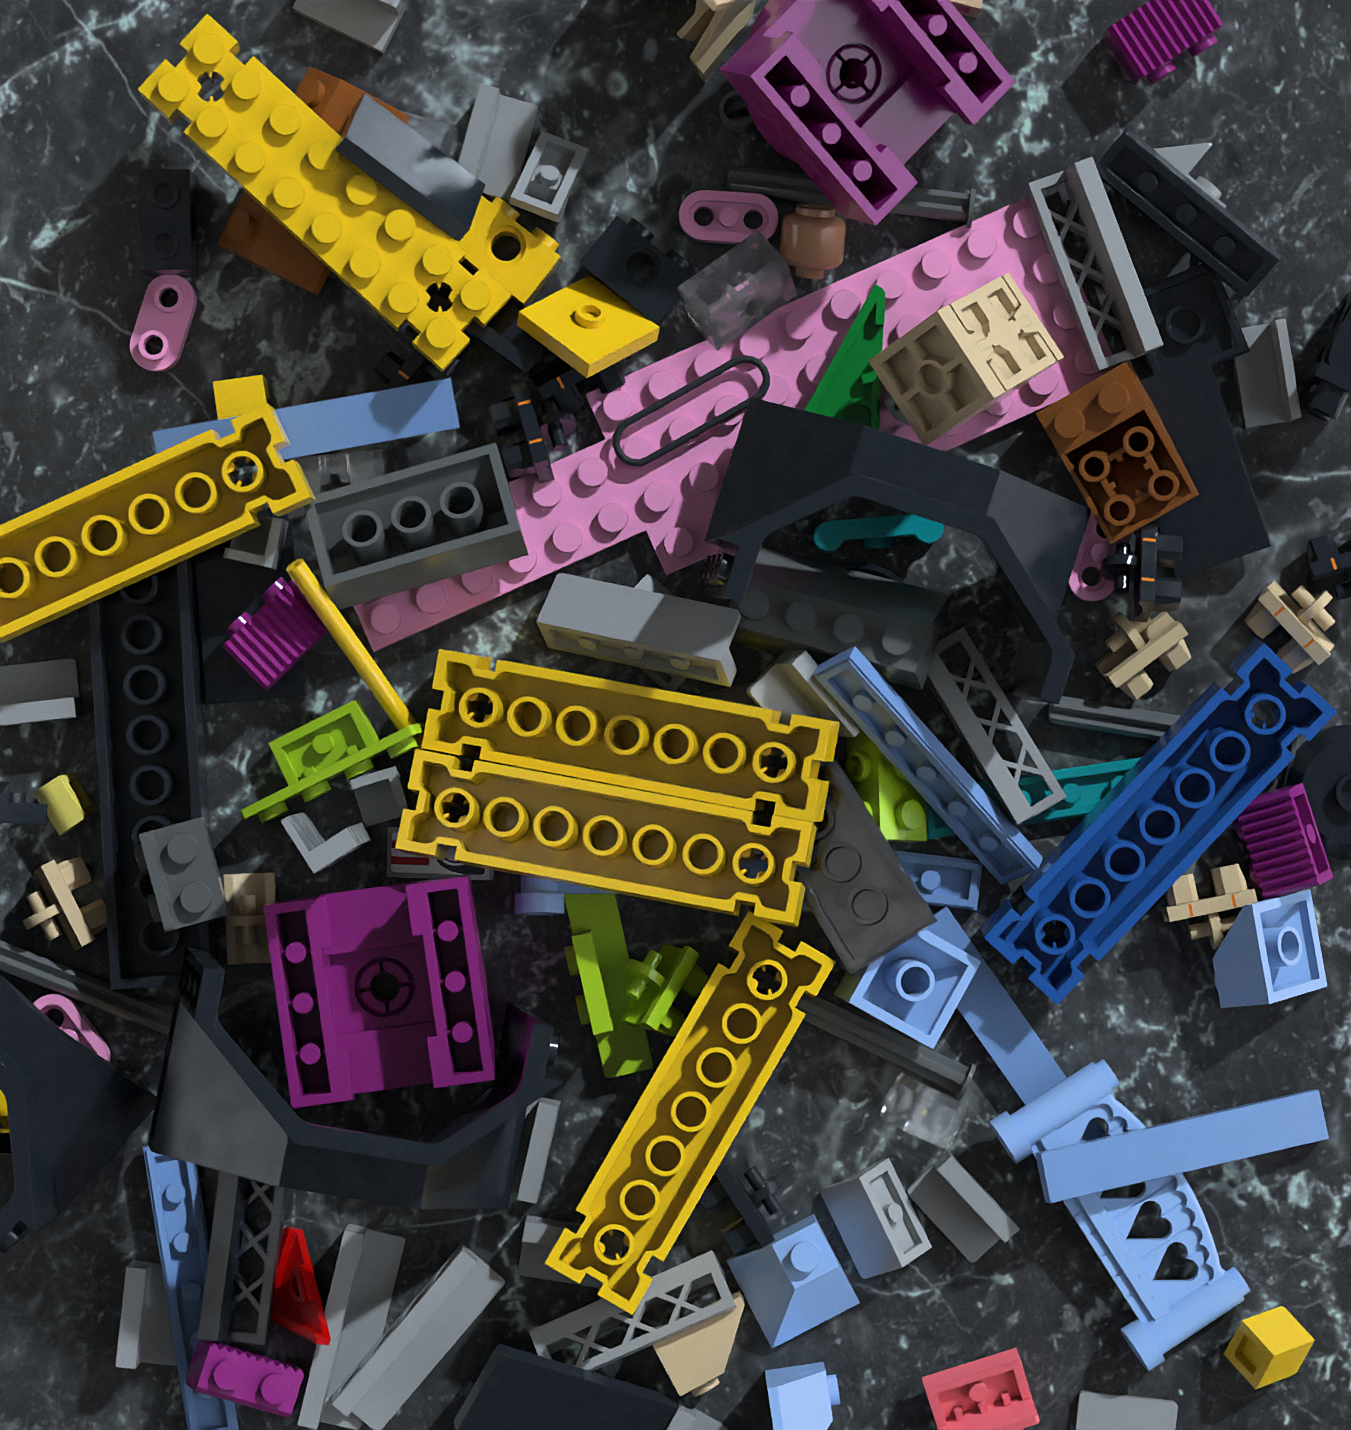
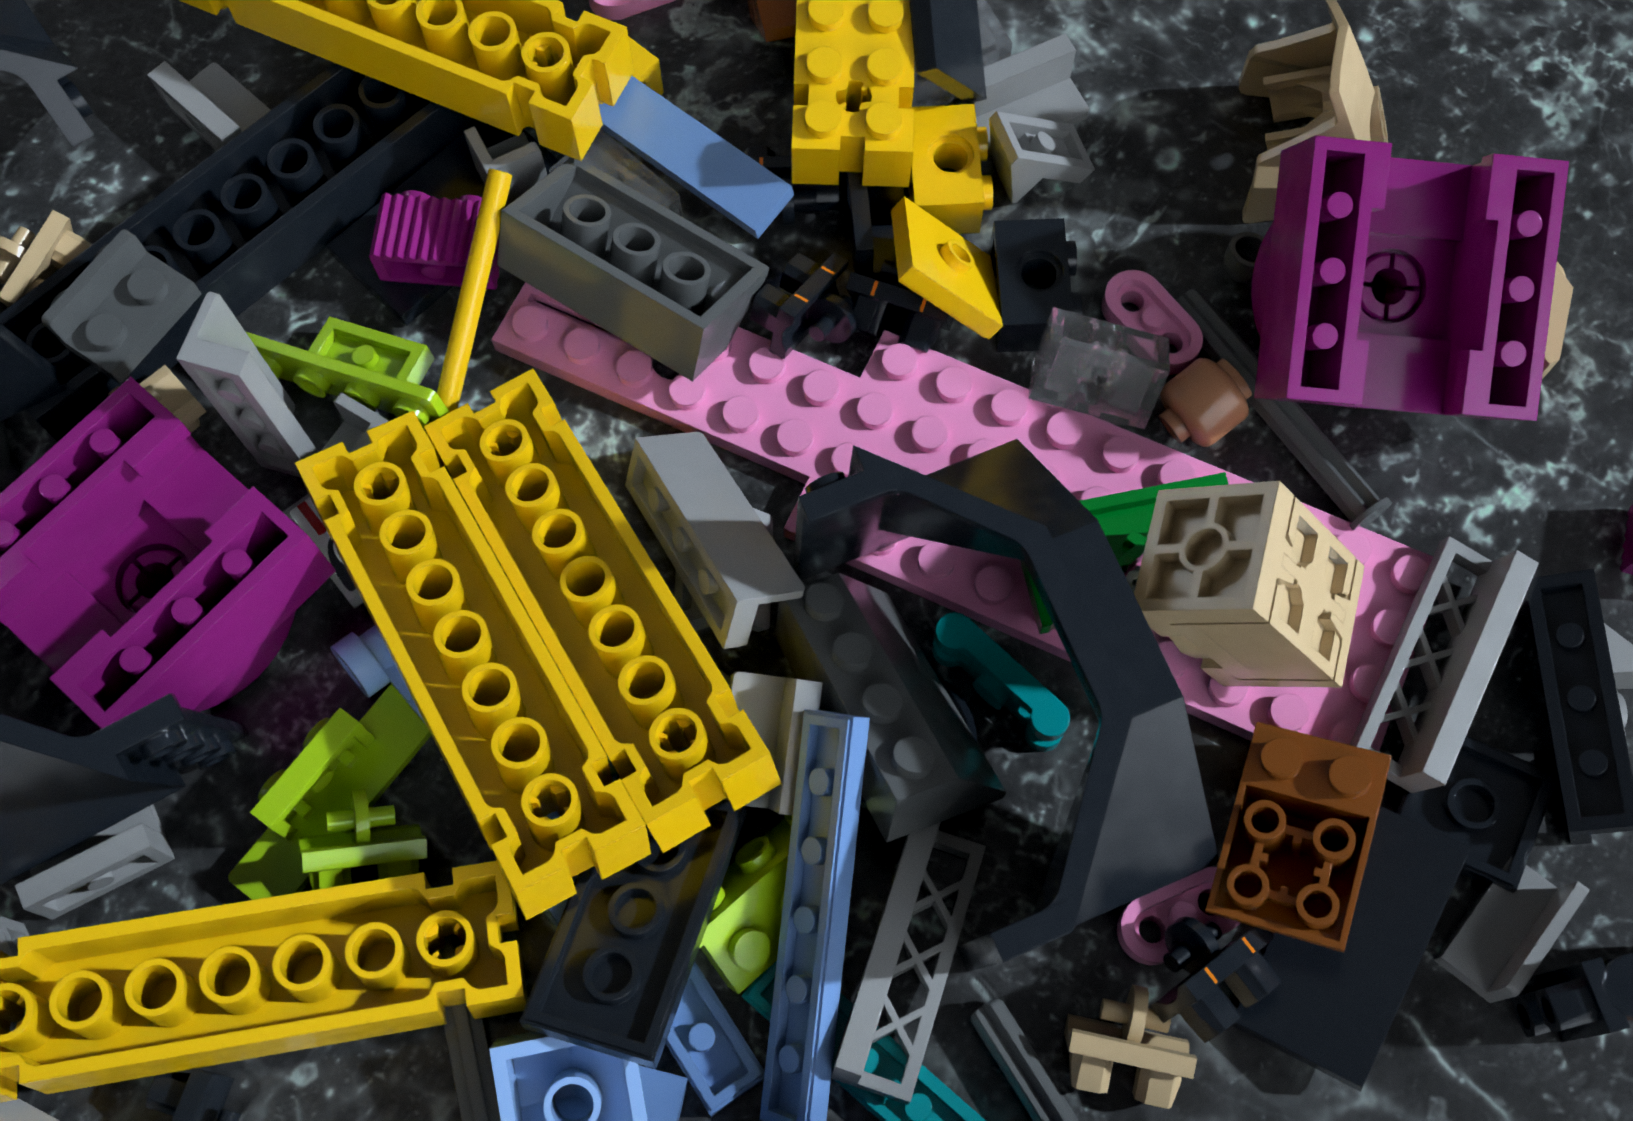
camera: 50 degrees right, 20 degrees down
(66, 802) = (135, 189): light yellow brick -> none
(680, 392) = (952, 396): black piece -> none

